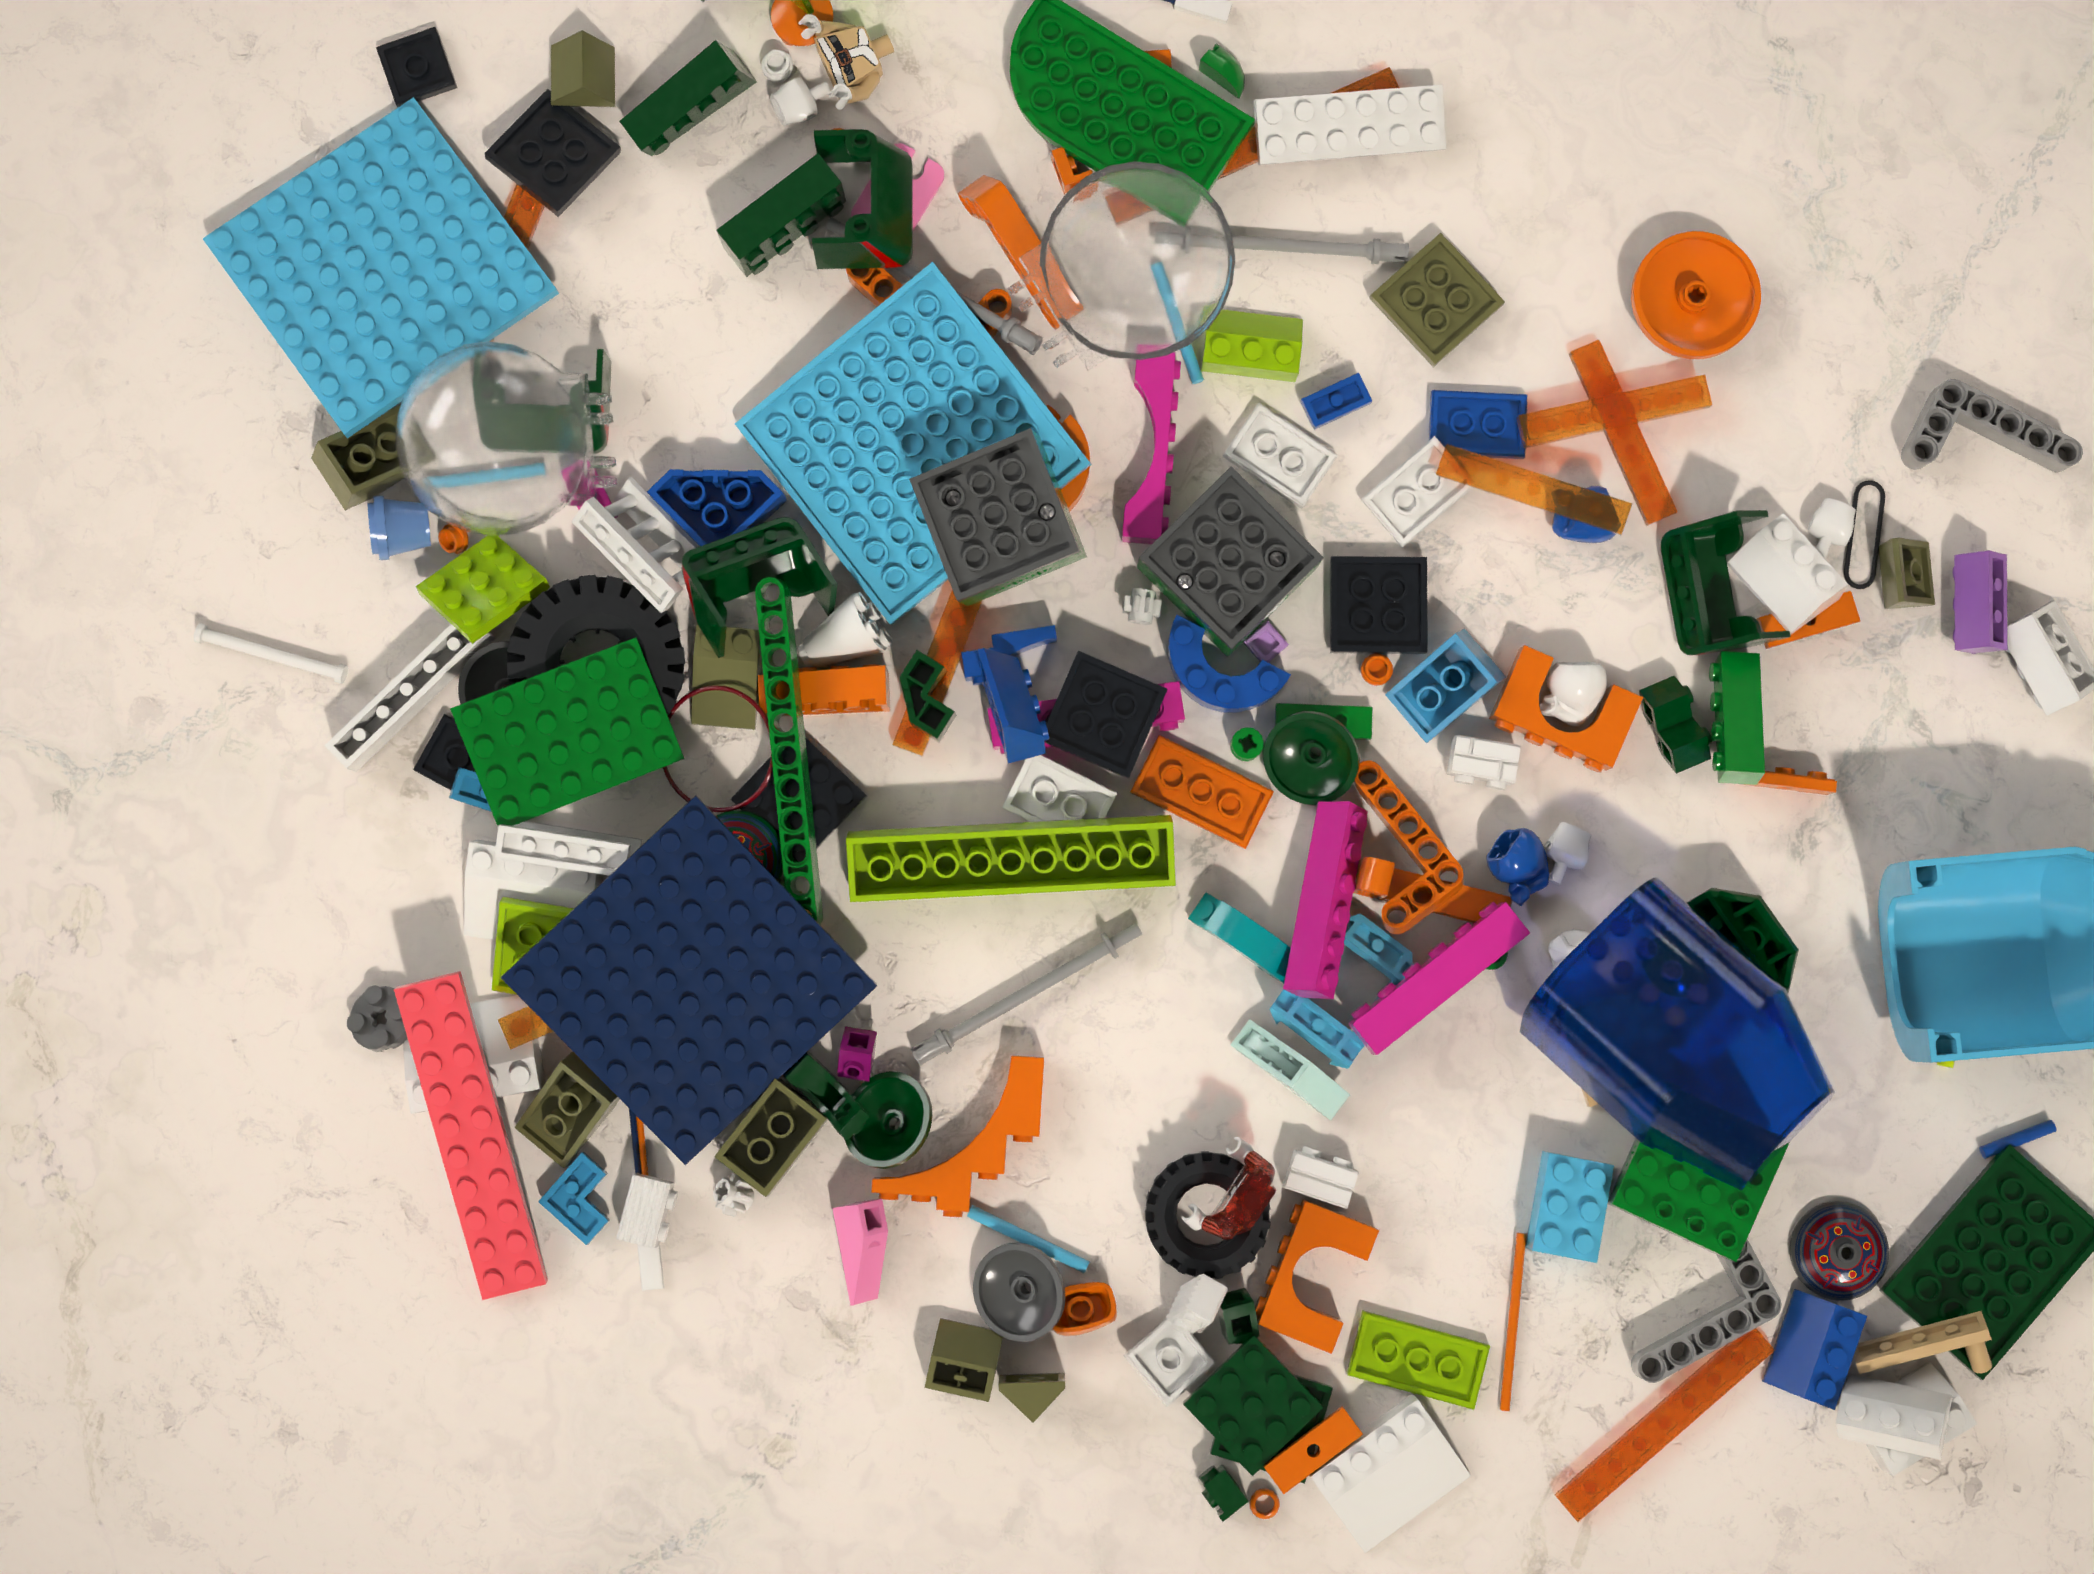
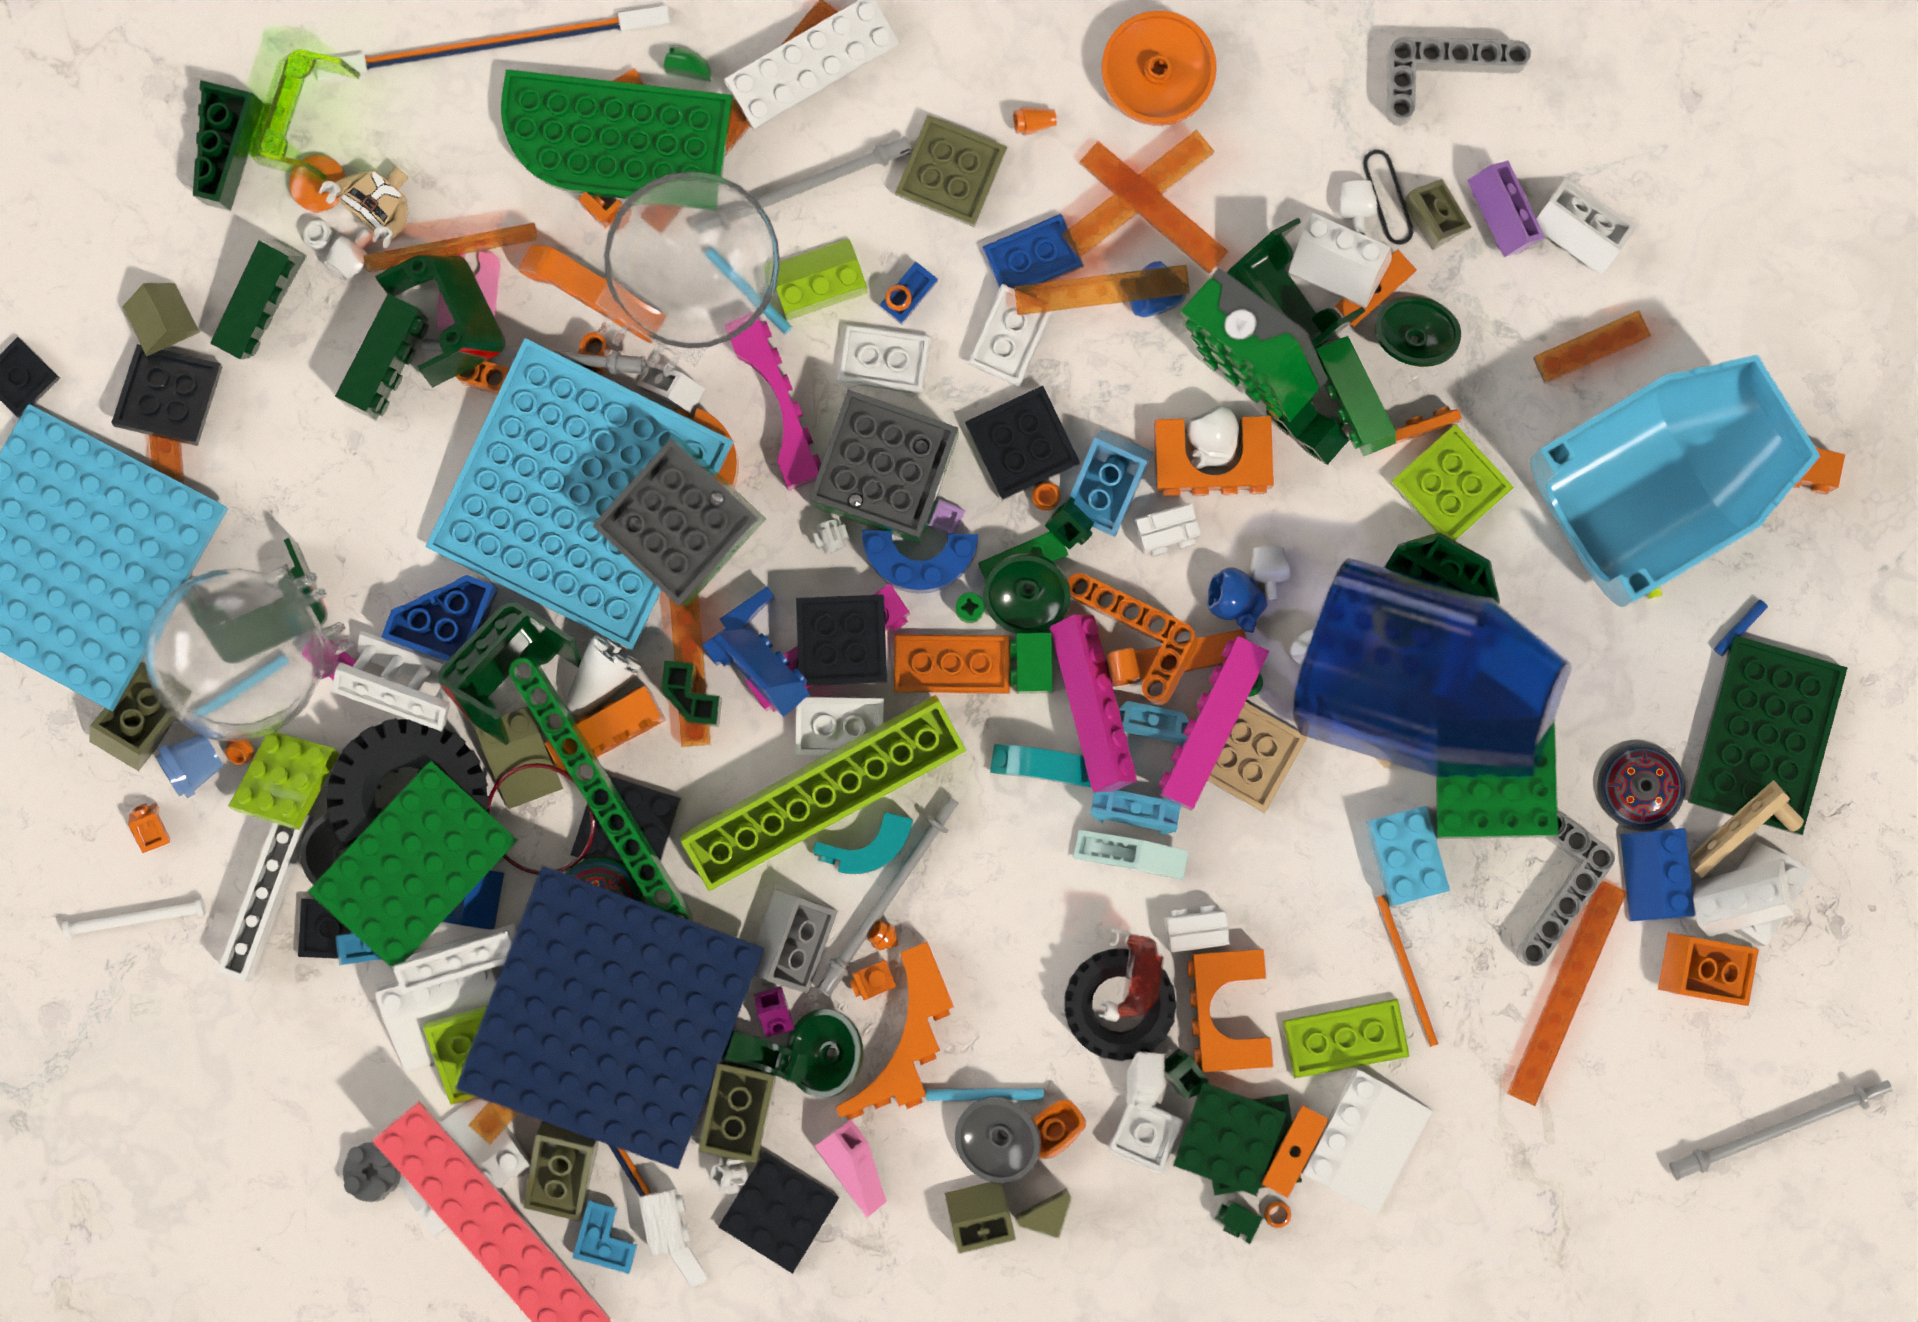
camera: 25 degrees left, 0 degrees up
(327, 570) = (148, 827): none -> orange bracket
(617, 805) = (481, 904): none -> blue slope
(765, 1256) = (778, 1212): none -> black plate
(907, 140) = (453, 246): none -> clear orange tile
(910, 991) = (793, 940): none -> light grey slope
(970, 1070) = (872, 980): none -> orange bracket
(1002, 1031) = (883, 936): none -> orange plate
(1035, 946) = (884, 848): none -> teal arch
(1055, 384) = (676, 389): none -> white slope
(1284, 829) = (1033, 663): none -> green brick
(1317, 409) = (901, 288): none -> orange piece
(1387, 709) = (1070, 524): none -> dark green brick
(1463, 1034) = (1256, 757): none -> tan plate
(1544, 288) = (1031, 120): none -> orange cone
(1663, 616) = (1253, 345): none -> green piece
(1793, 853) = (1452, 484): none -> lime plate
(1820, 1469) = (1708, 969): none -> orange slope
(1832, 683) = (1417, 331): none -> dark green dish
(2001, 782) = (1591, 346): none -> clear orange plate

